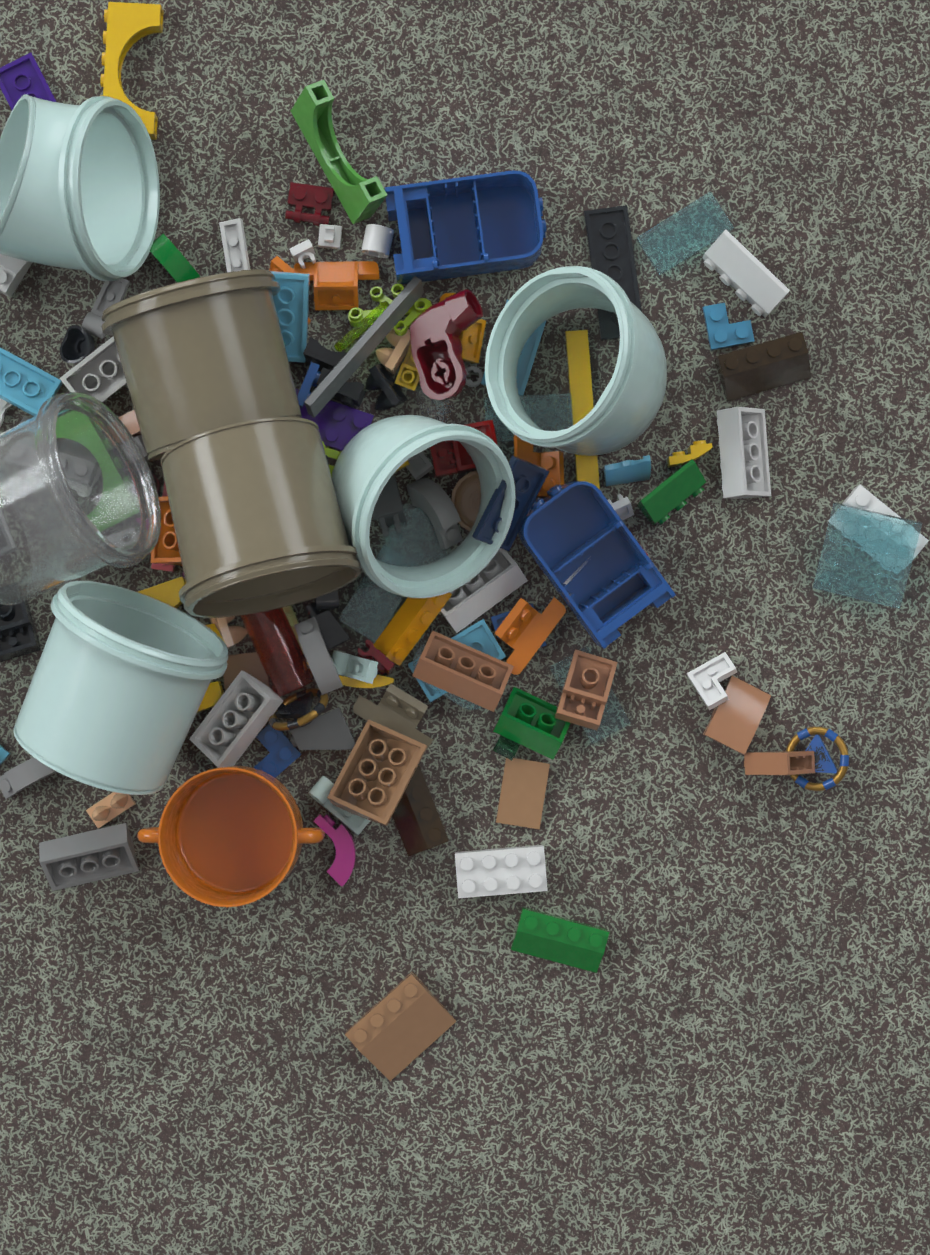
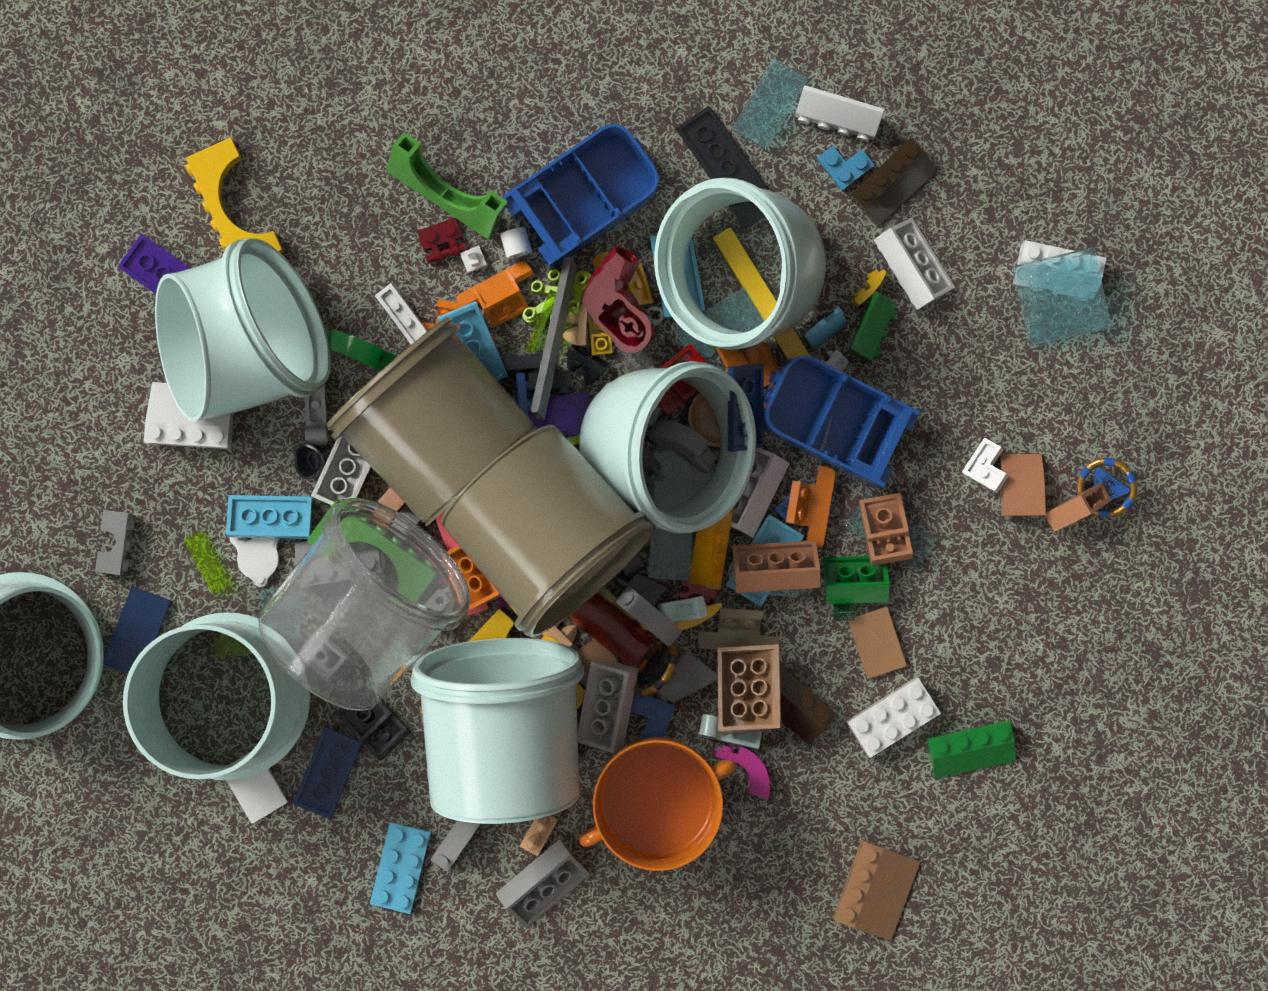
camera: 25 degrees left, 0 degrees up
(303, 251) = (457, 284): white tile -> none

